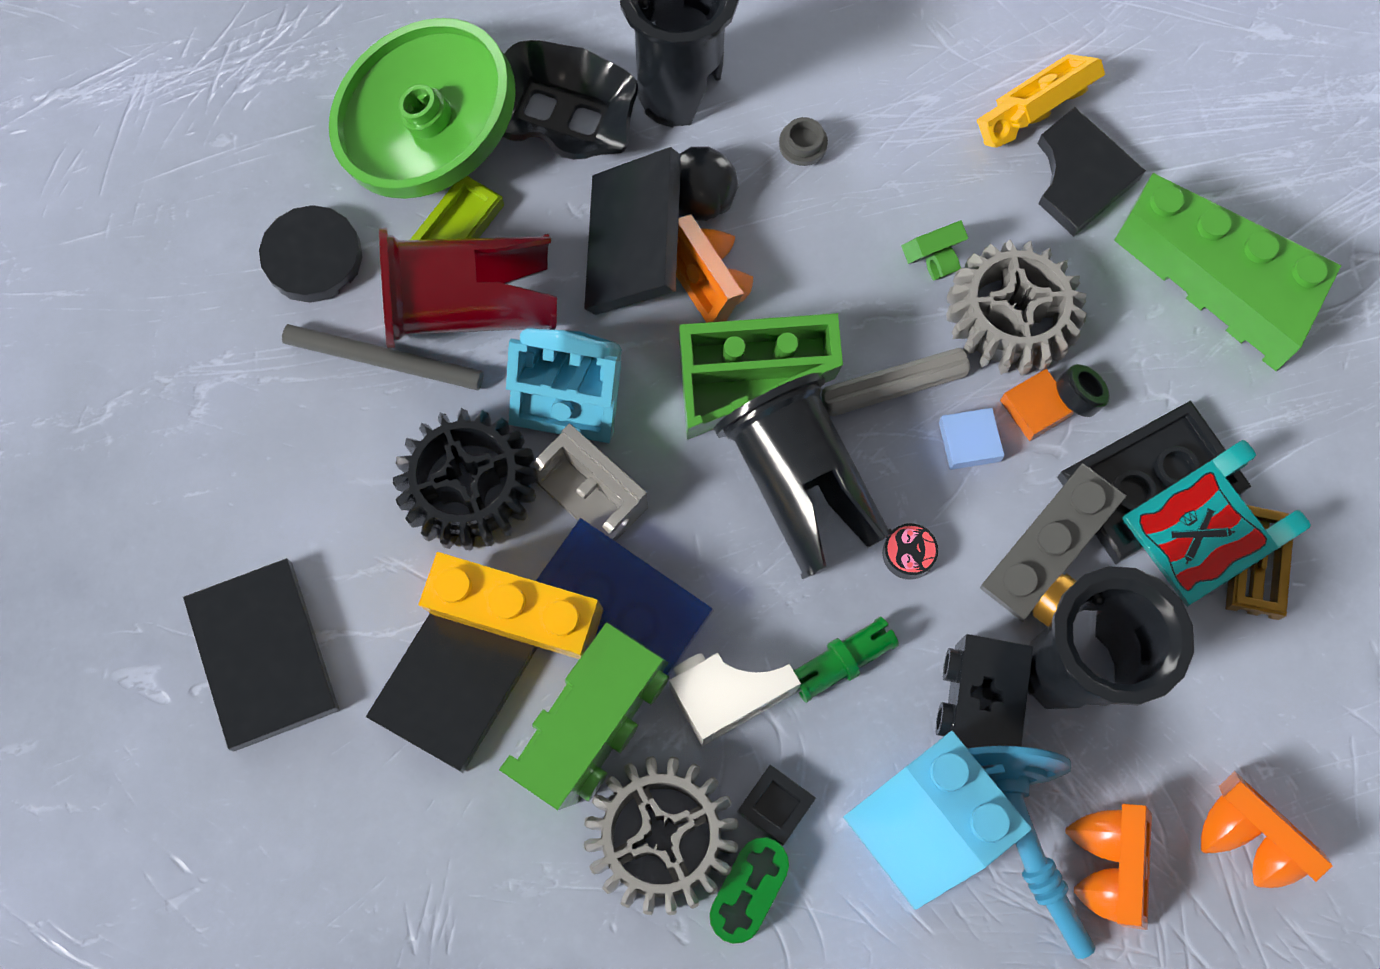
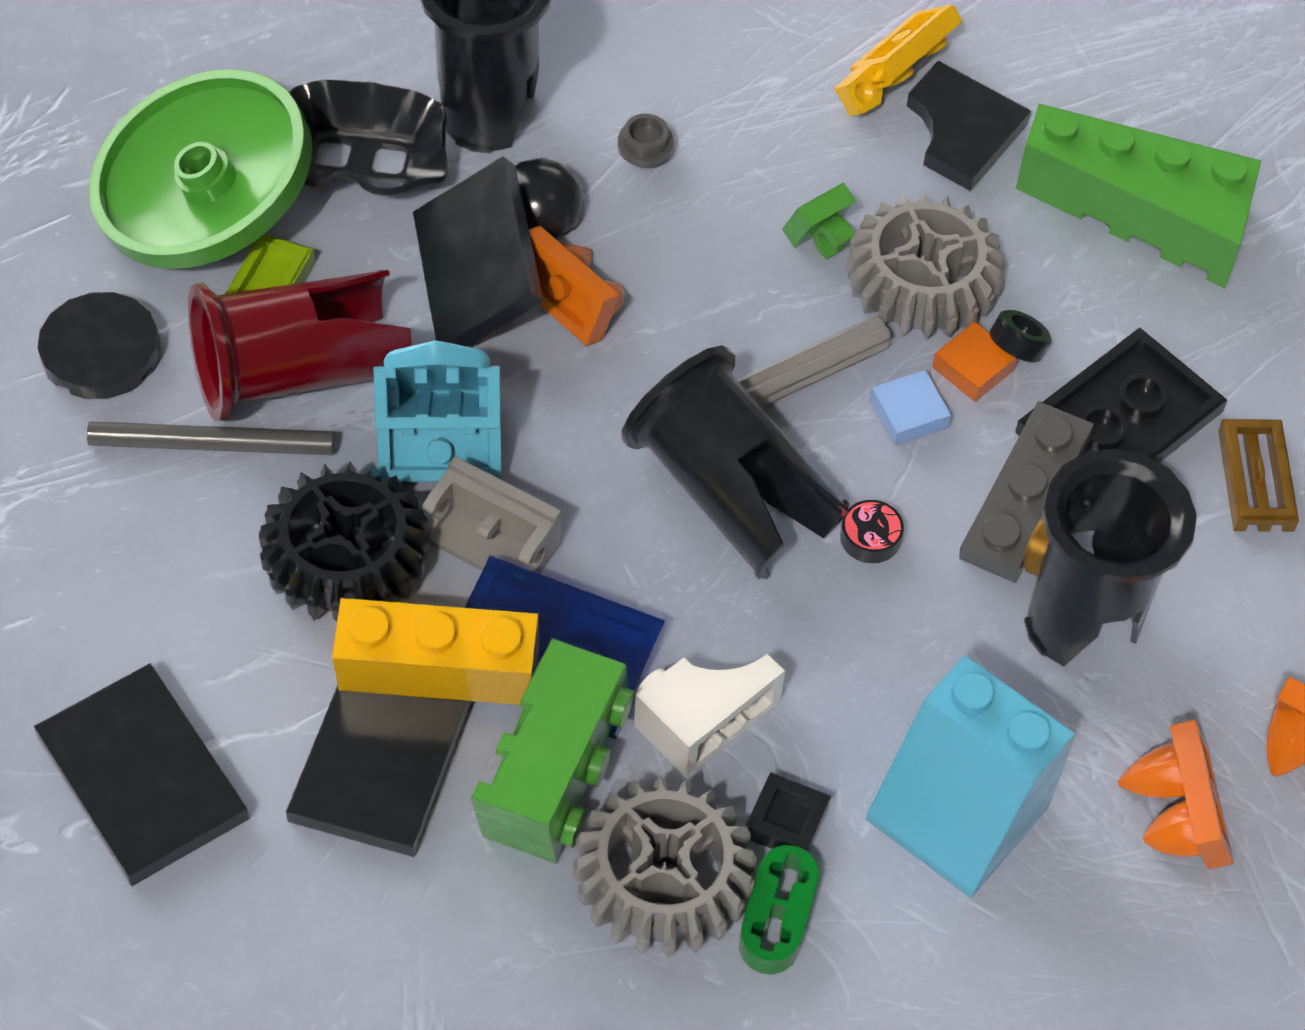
camera: 15 degrees left, 15 degrees down
(743, 359) = (620, 358): bright green wedge -> none
(845, 658) = (827, 650): green pin -> none
(1004, 675) = (998, 634): black brick -> none
(1013, 773) = (1096, 811): dark azure dish -> none
(1205, 531) = (1197, 437): flag -> none

